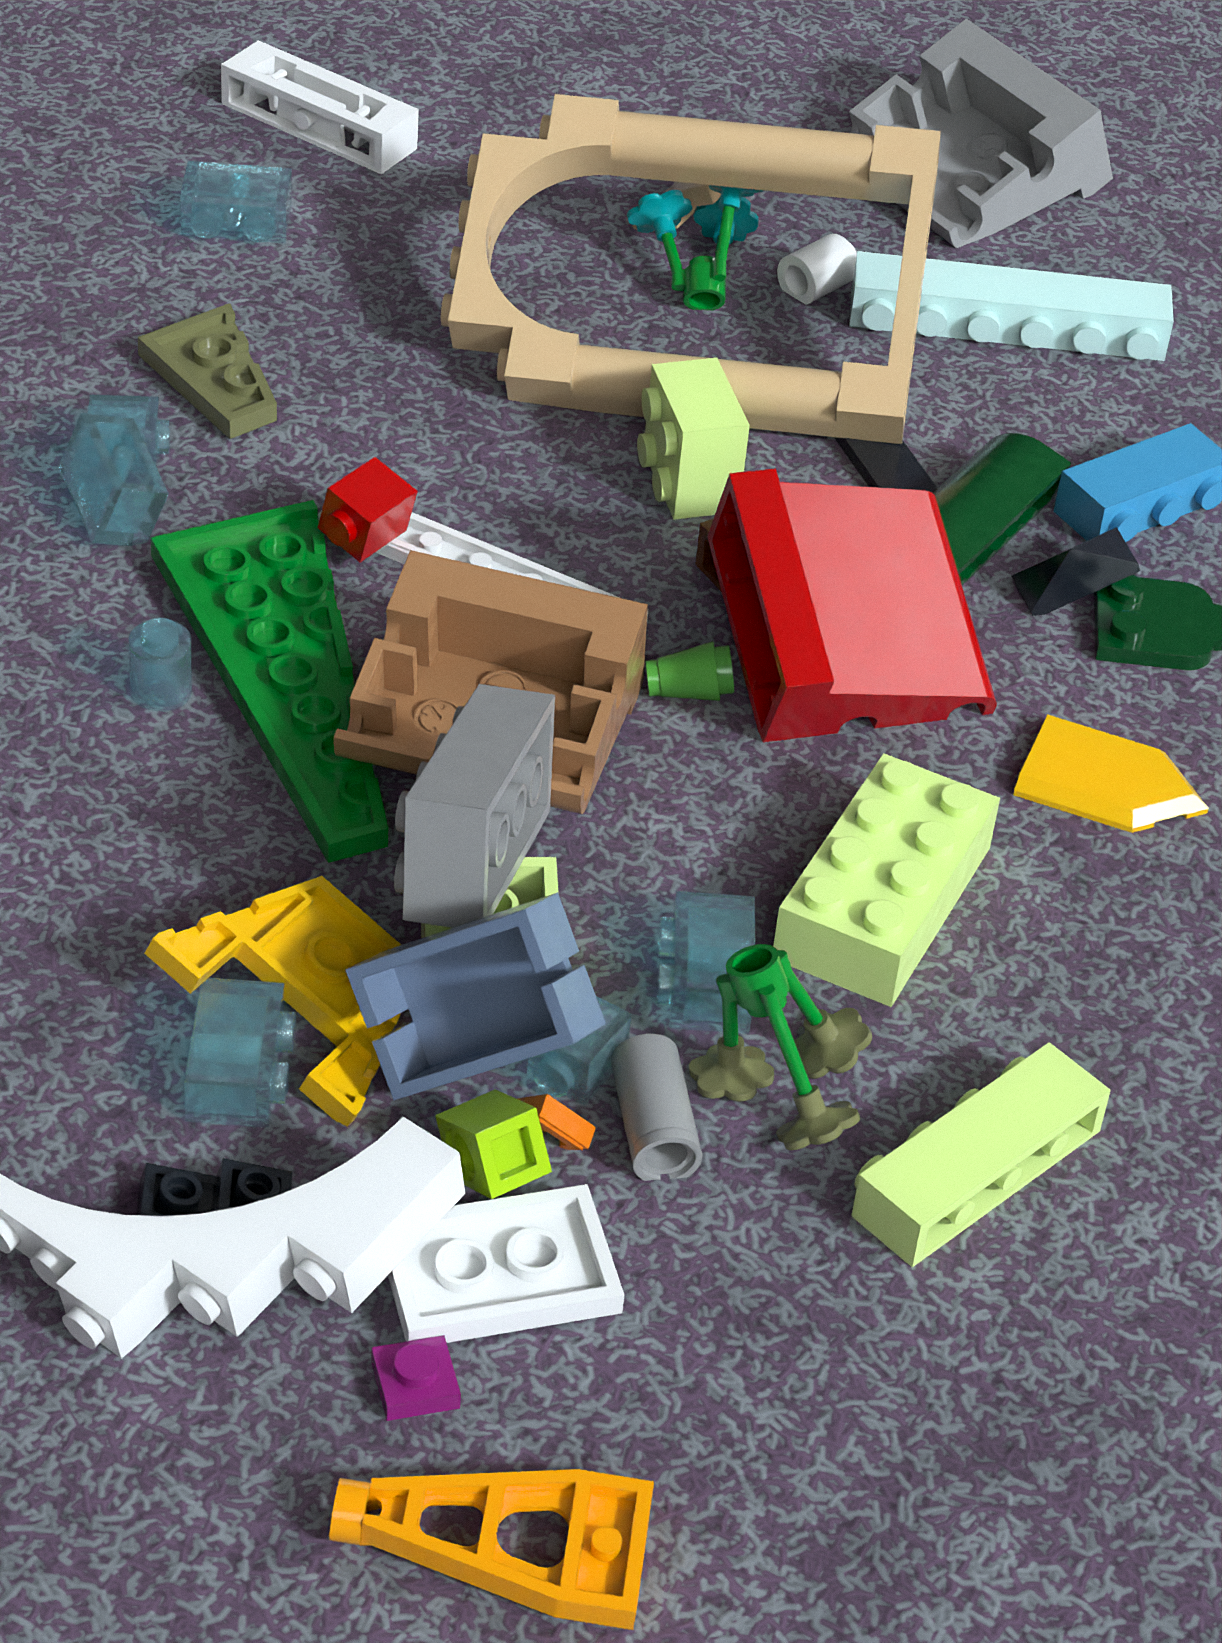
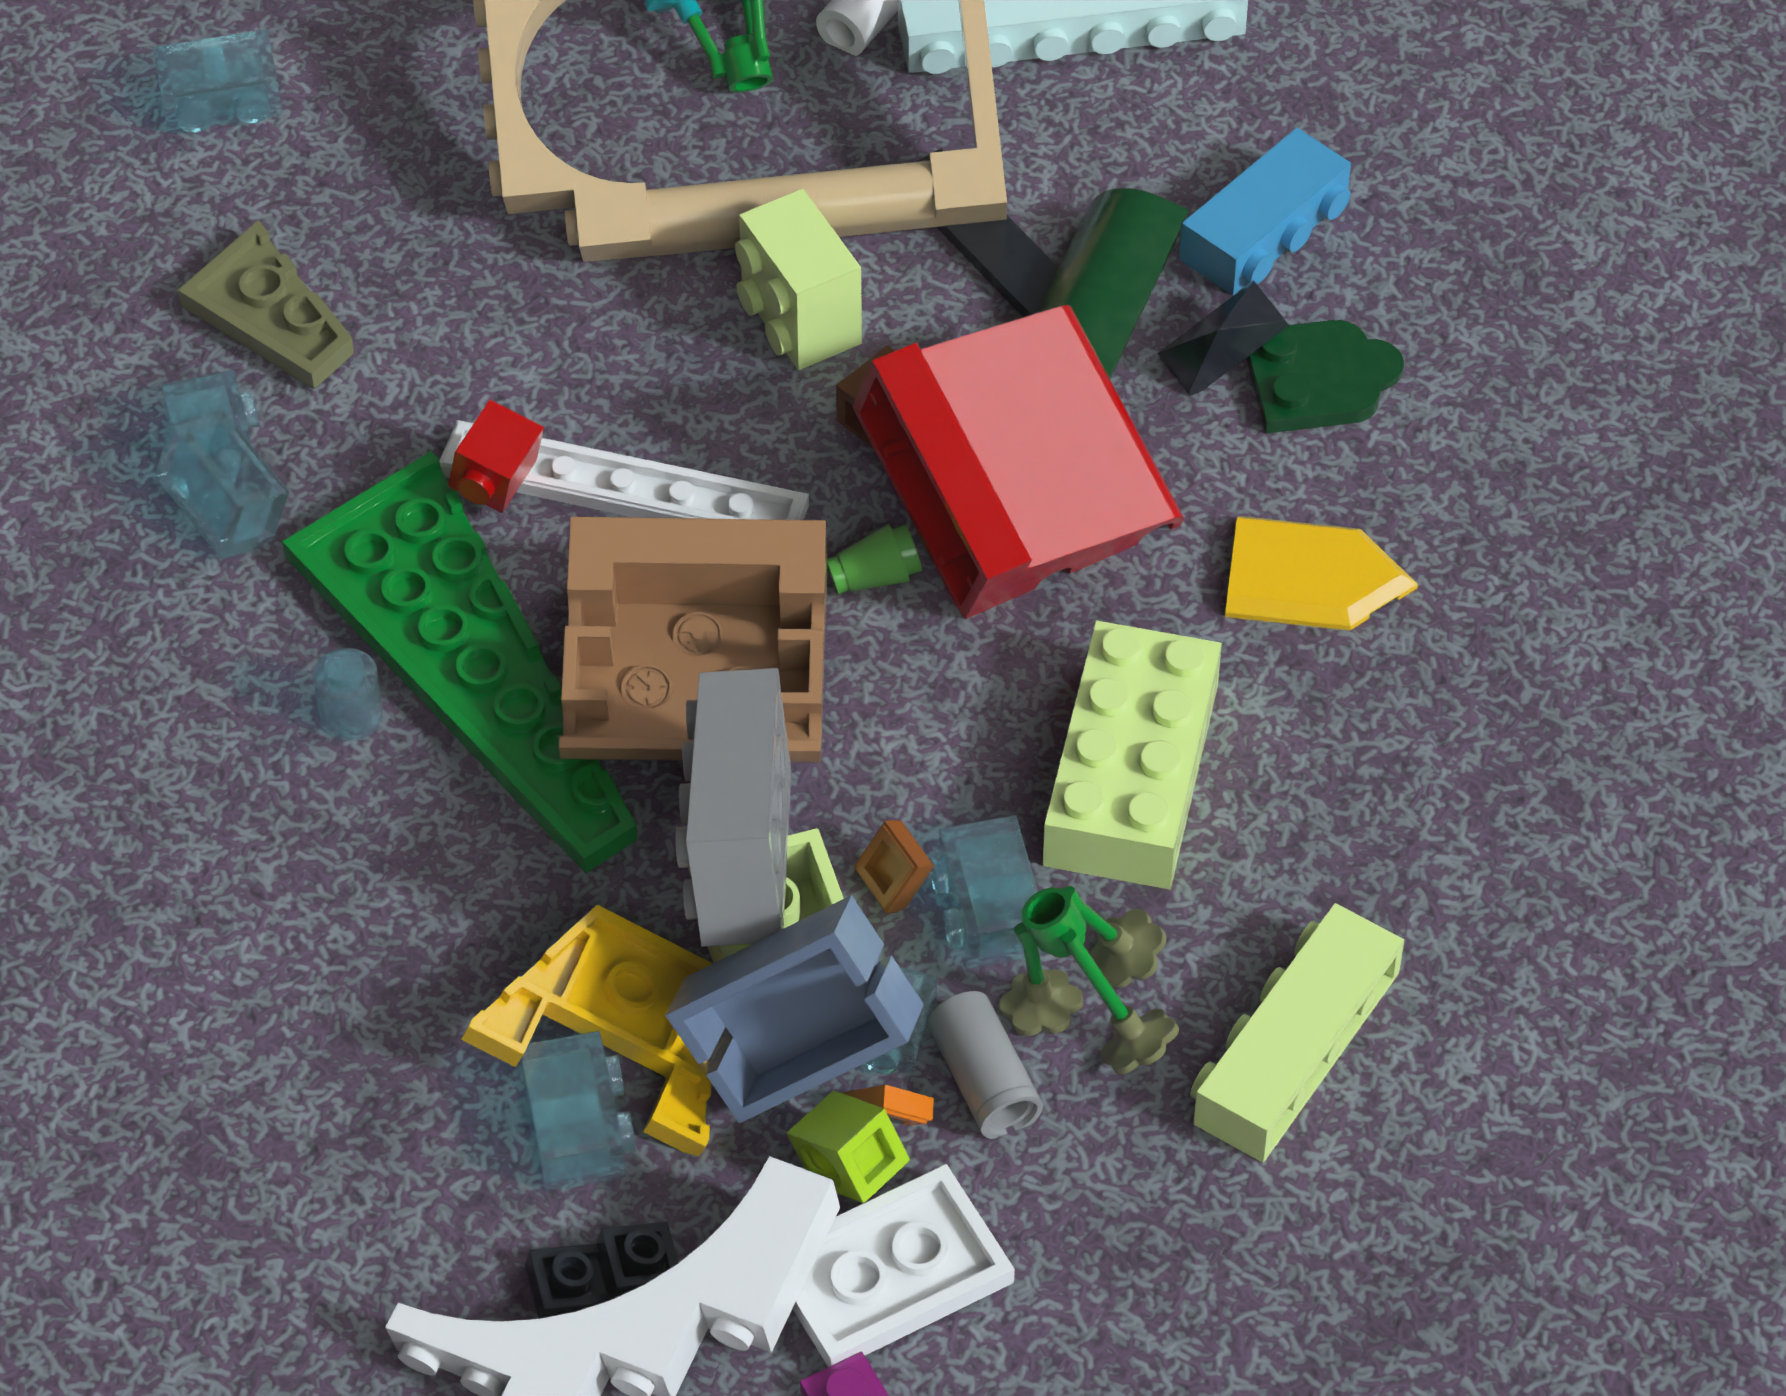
camera: 10 degrees left, 10 degrees up
(623, 919) = (893, 866): none -> dark orange tile

